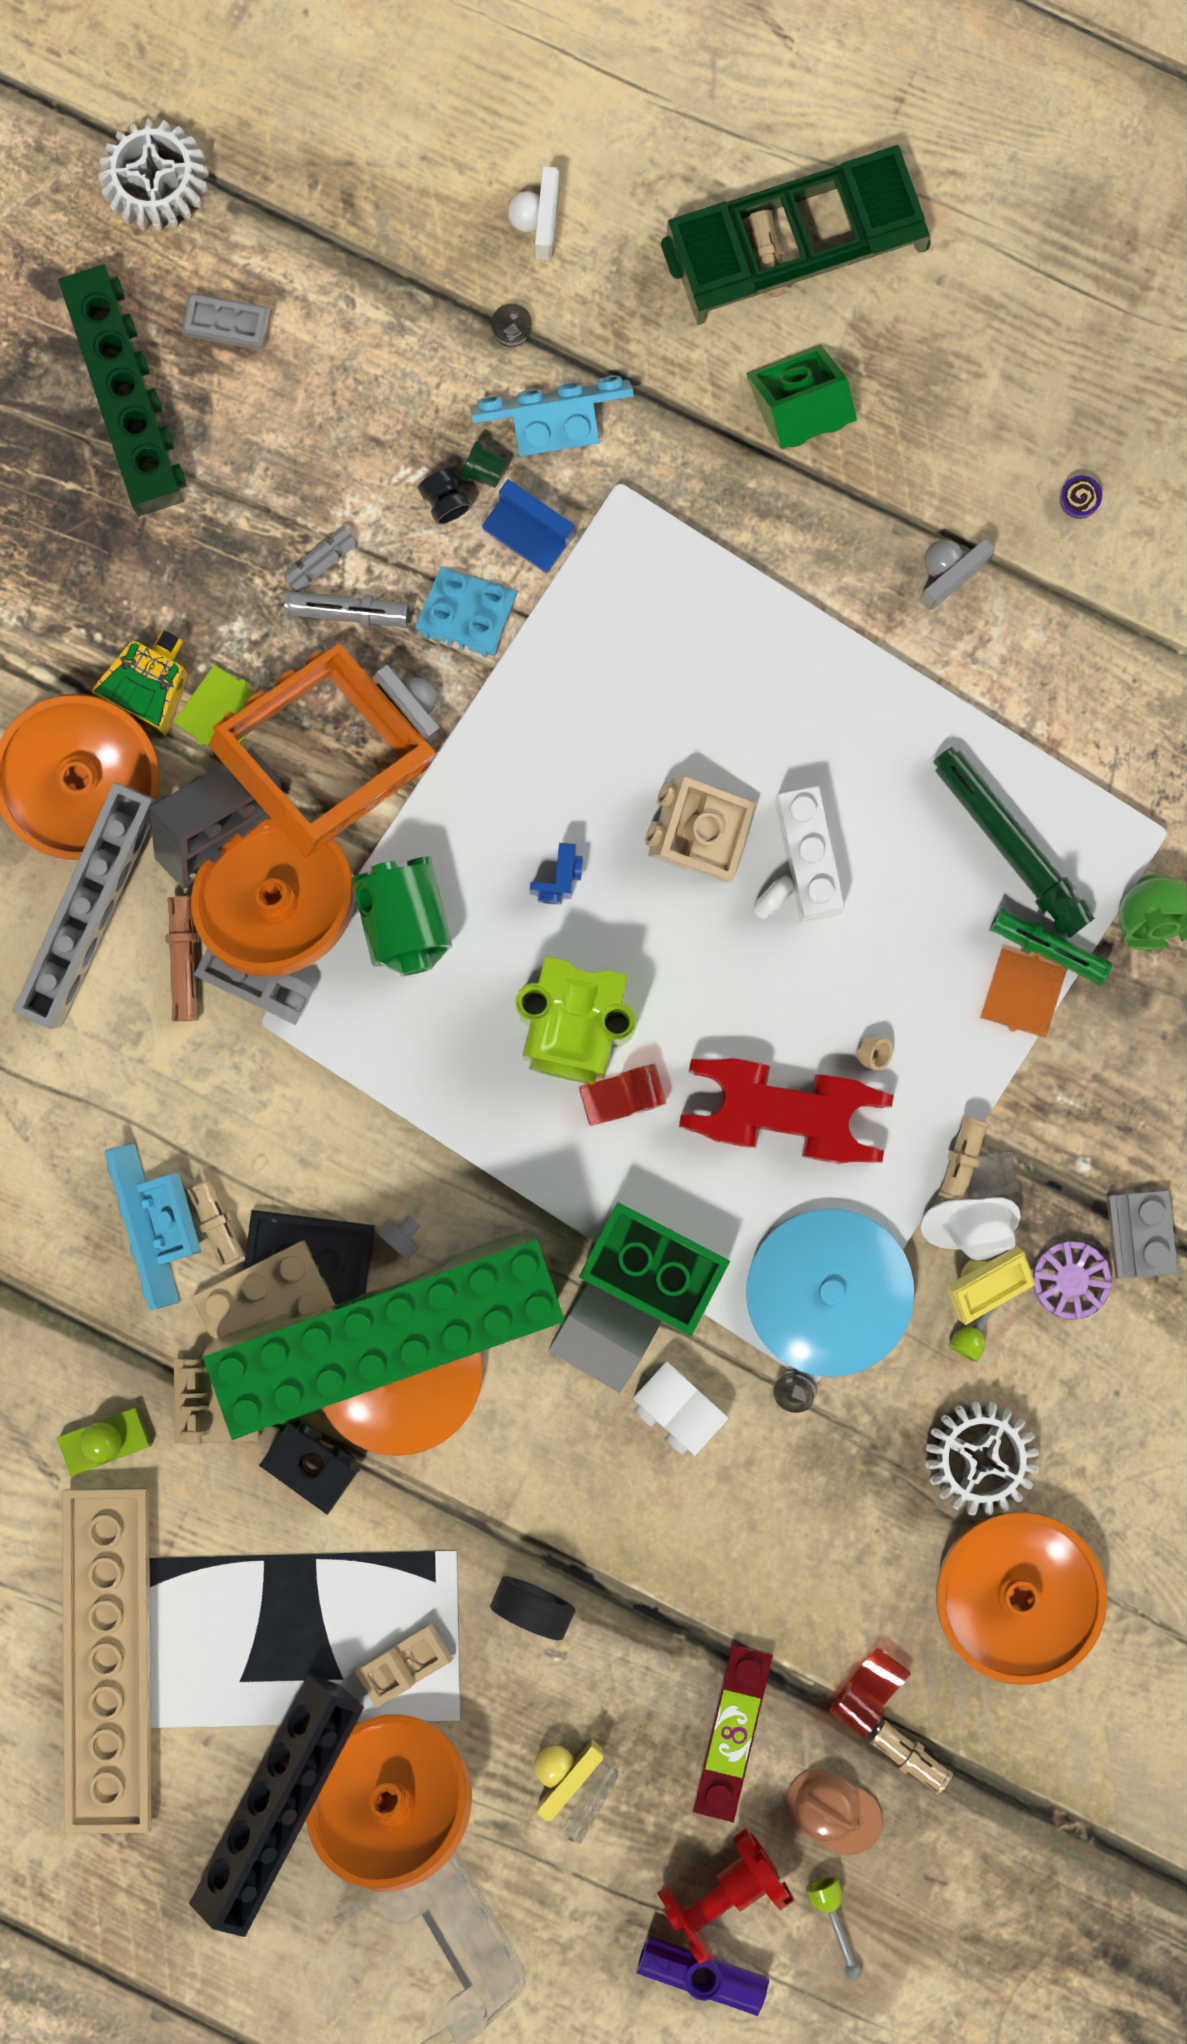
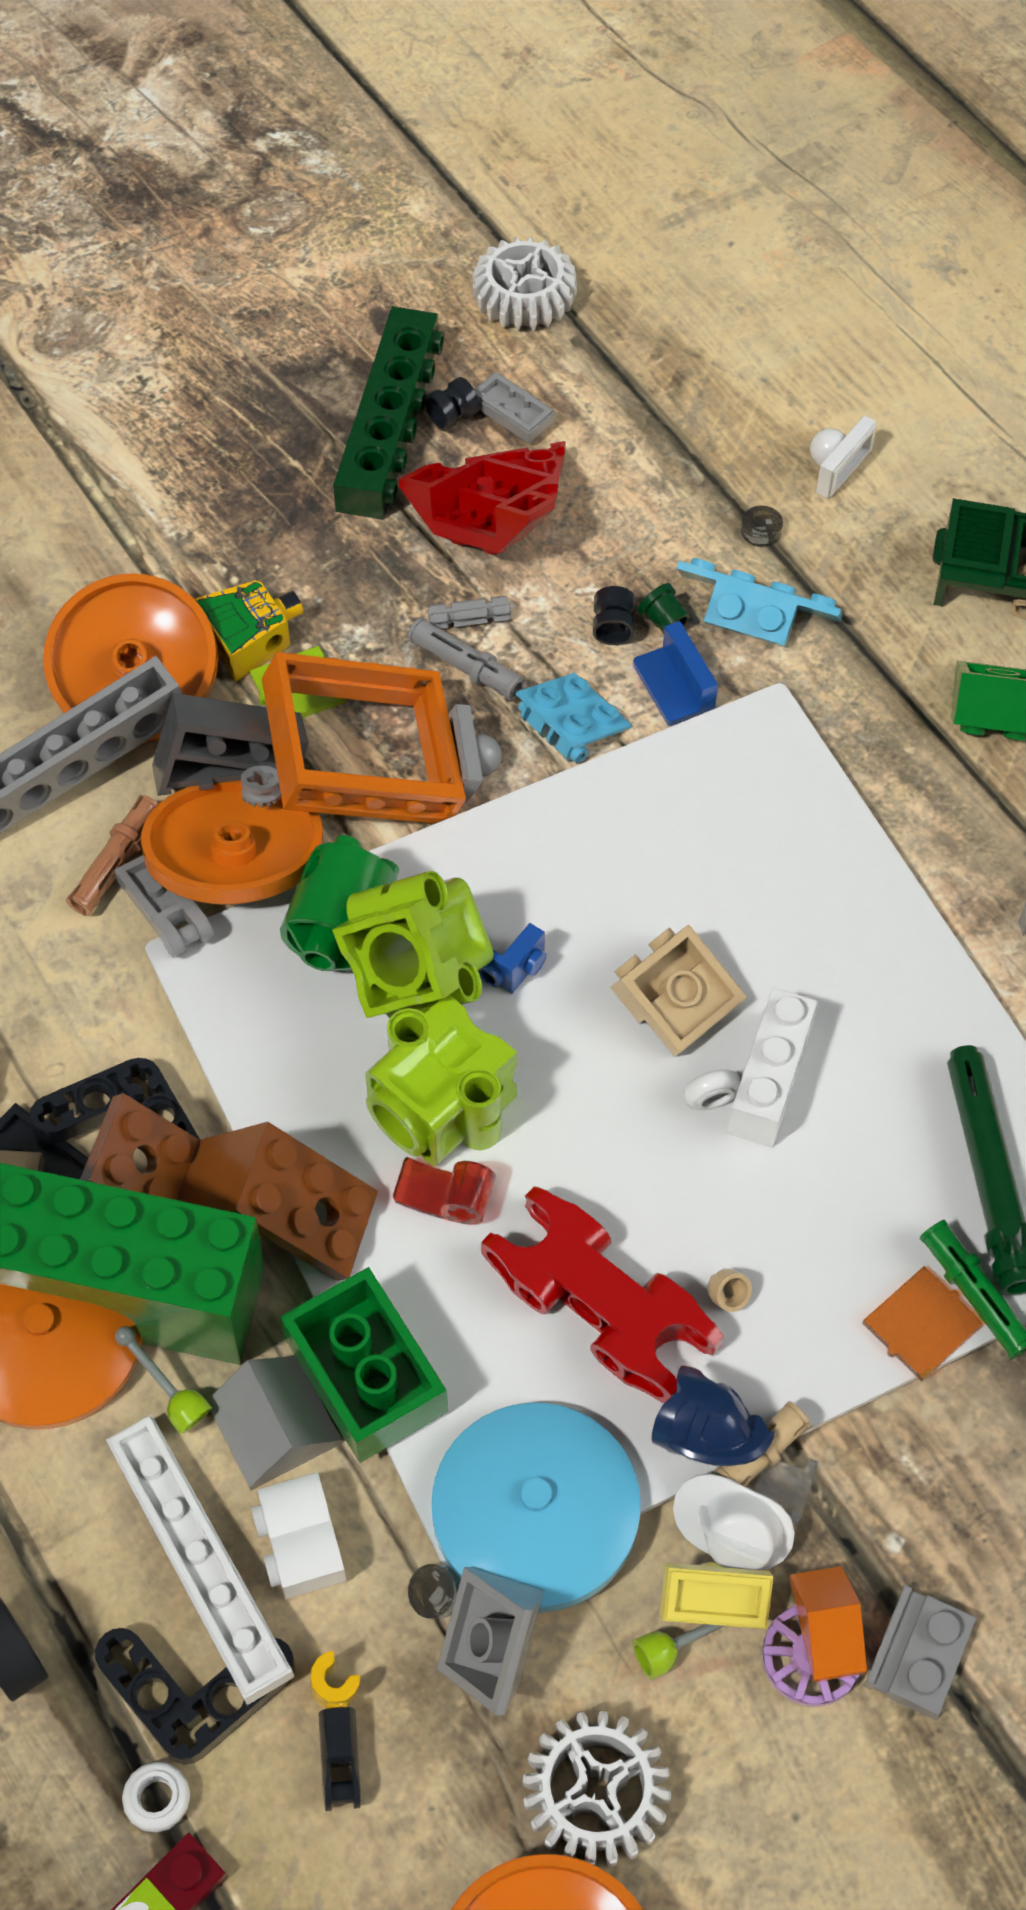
camera: 30 degrees right, 25 degrees down
(172, 350) = (452, 404): none -> black wheel
(262, 846) = (266, 792): none -> light grey bush
(274, 434) = (489, 498): none -> red wedge
(332, 1160) = (112, 1083): none -> black beam
(470, 1194) = (242, 1172): none -> dark orange bracket
(492, 926) = (414, 944): none -> lime piece
(539, 1367) = (185, 1406): none -> hinge
(618, 1465) = (200, 1560): none -> white tile
(671, 1569) = (178, 1708): none -> black beam
(694, 1653) = (170, 1815): none -> white piece
(787, 1522) = (336, 1732): none -> black piece
(856, 1405) = (489, 1637): none -> light grey slope
(924, 1170) = (709, 1423): none -> dark blue helmet
(1074, 1255) = (830, 1623): none -> orange slope

